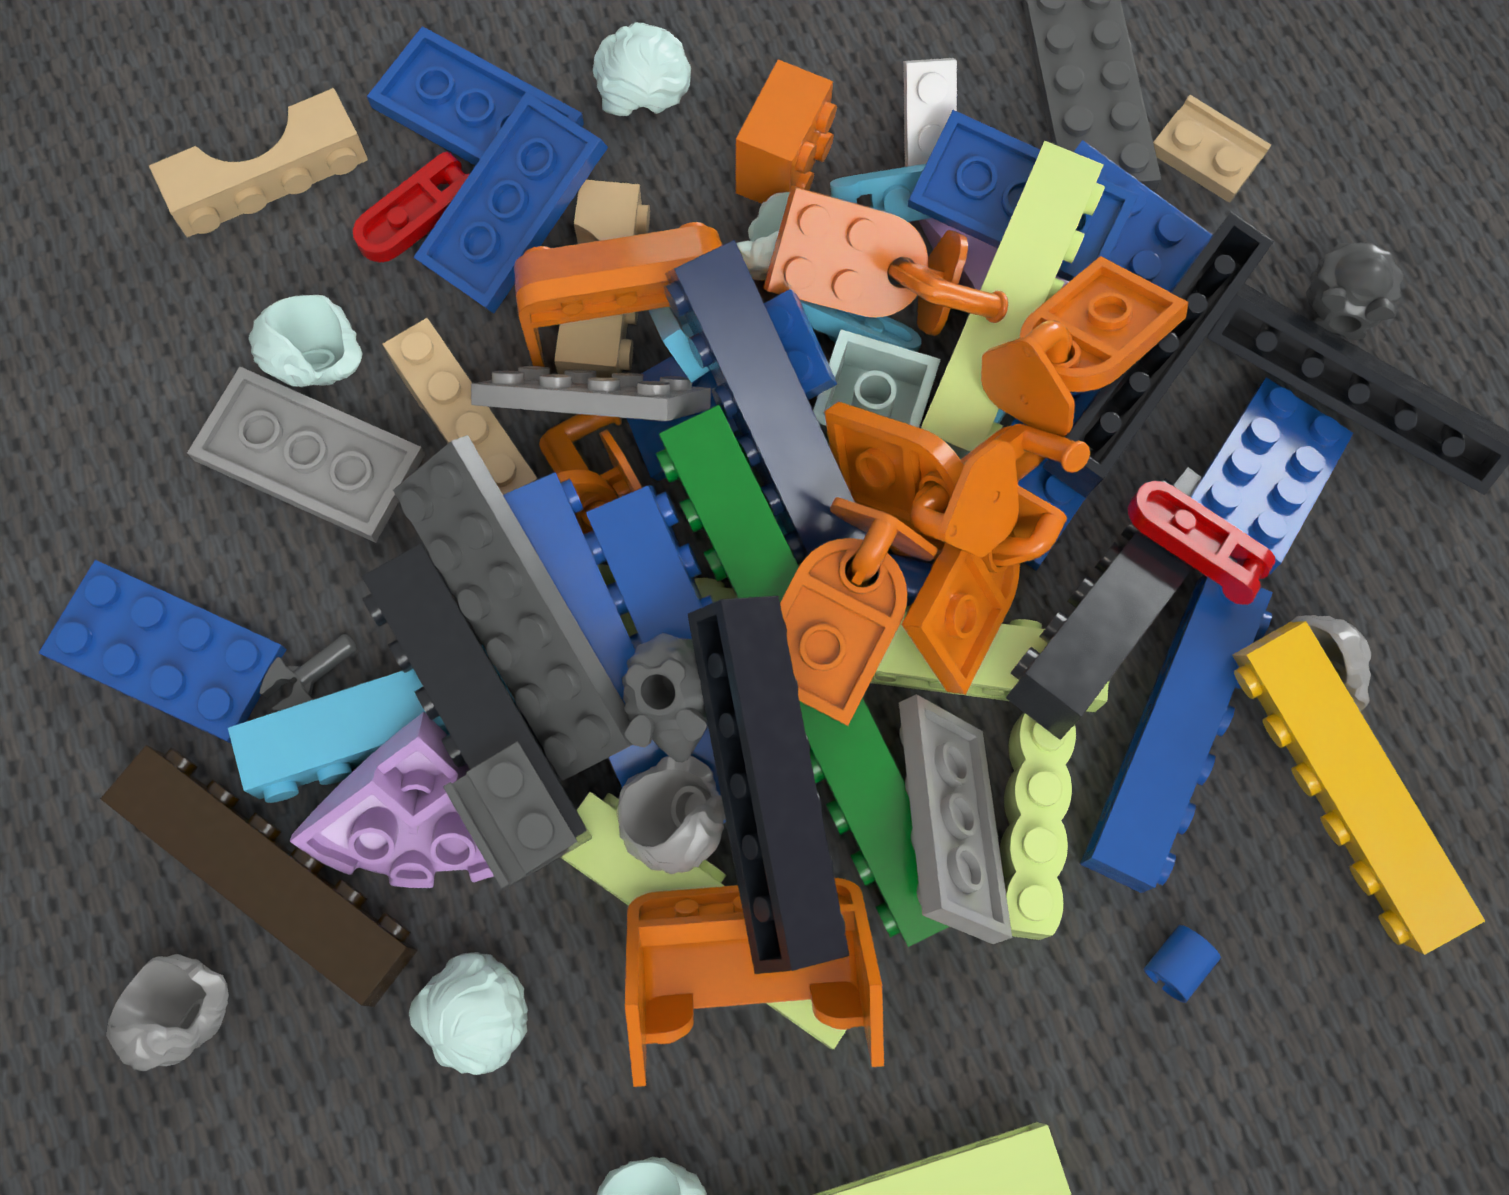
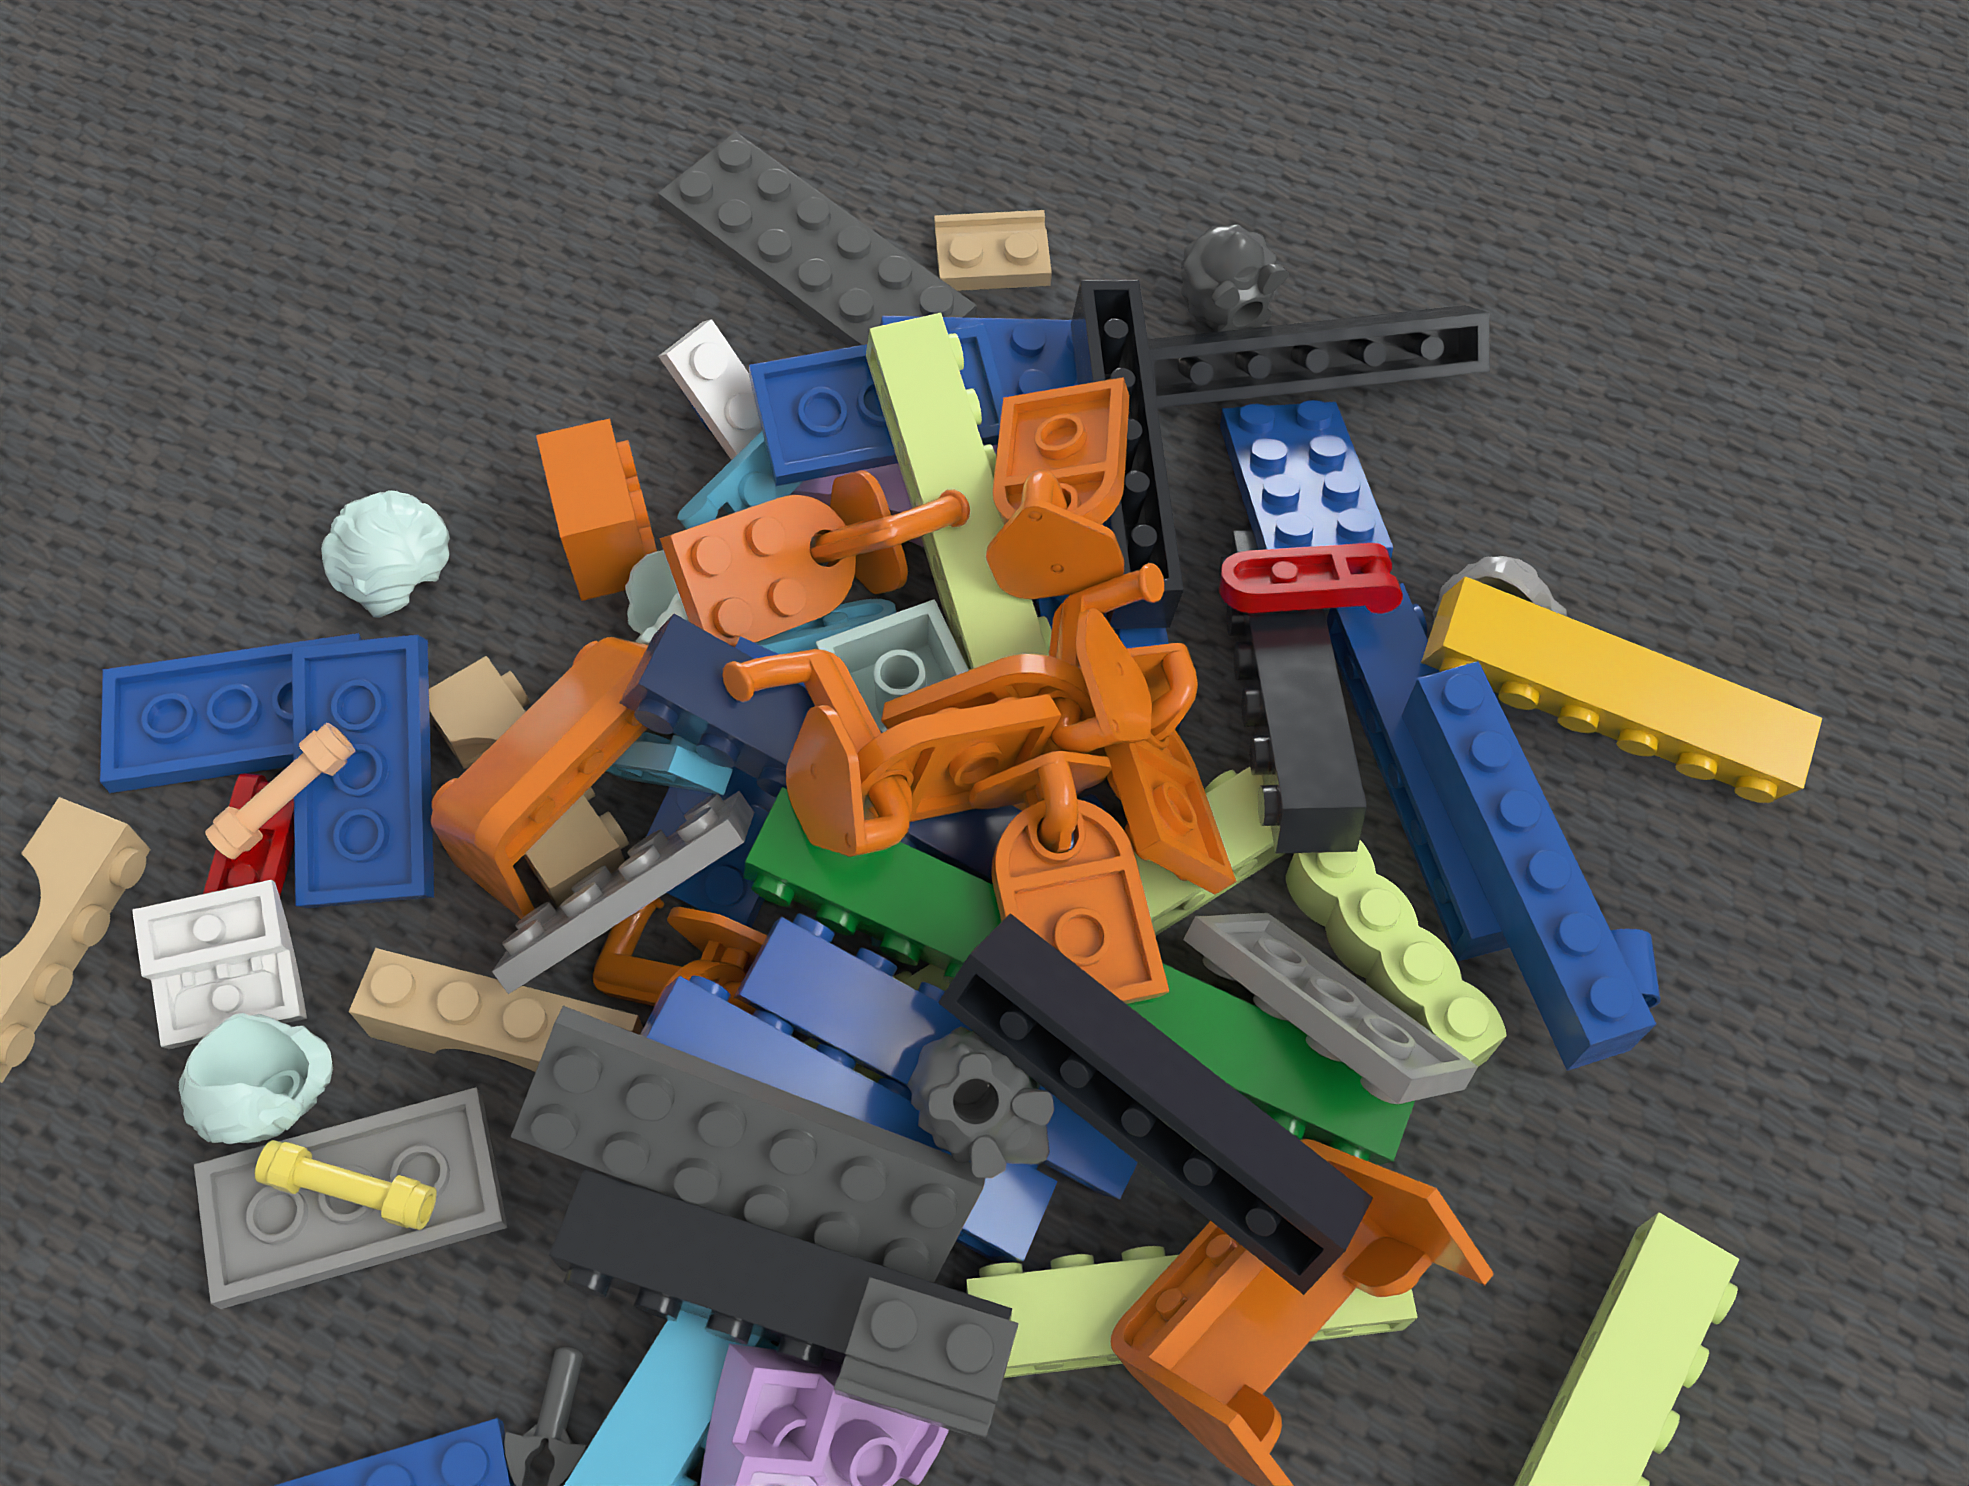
camera: 40 degrees left, 10 degrees down
(285, 413) = (291, 1167): none -> light yellow bar
(344, 257) = (218, 960): none -> white slope
(491, 173) = (239, 830): none -> light nougat bar
(671, 815) = (1075, 1226): light grey hair -> none
(795, 451) = (865, 786): none -> orange plate
(1166, 840) = (1526, 868): none -> blue brick

